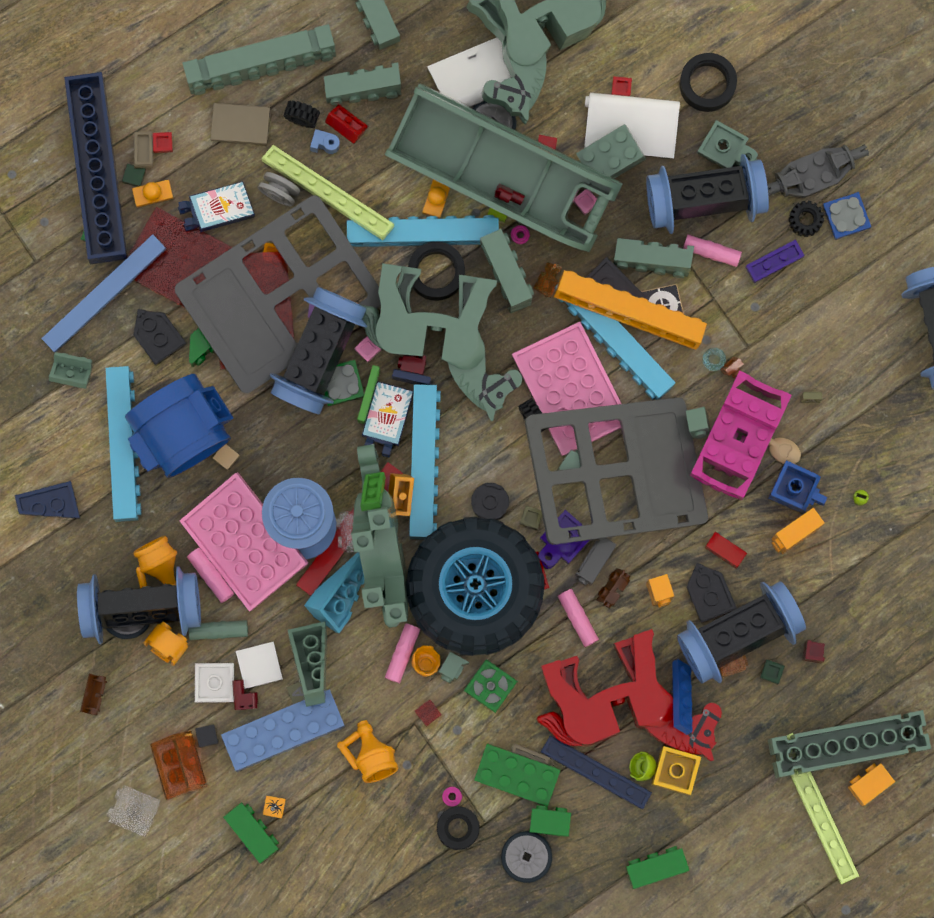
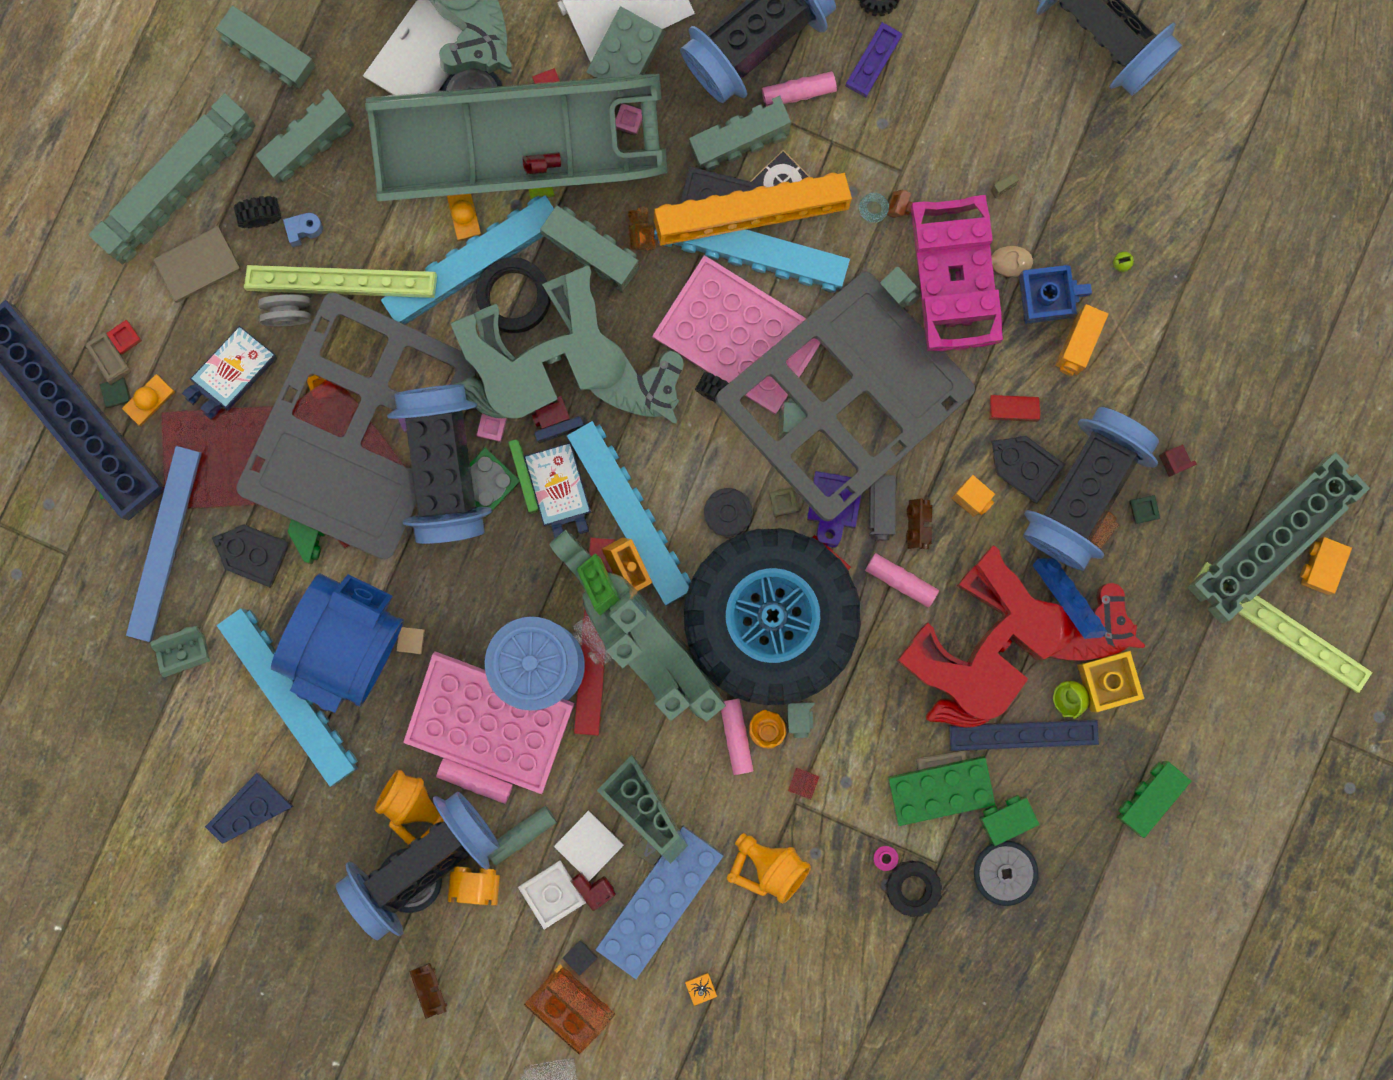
camera: 25 degrees left, 5 degrees up
(252, 832) = (694, 1032): green brick -> none
(337, 594) = (625, 720): medium azure wedge -> none
(346, 123) = (313, 193): red slope -> none
(490, 686) = (853, 712): green piece -> none
(522, 229) = (577, 192): dark pink plate -> none

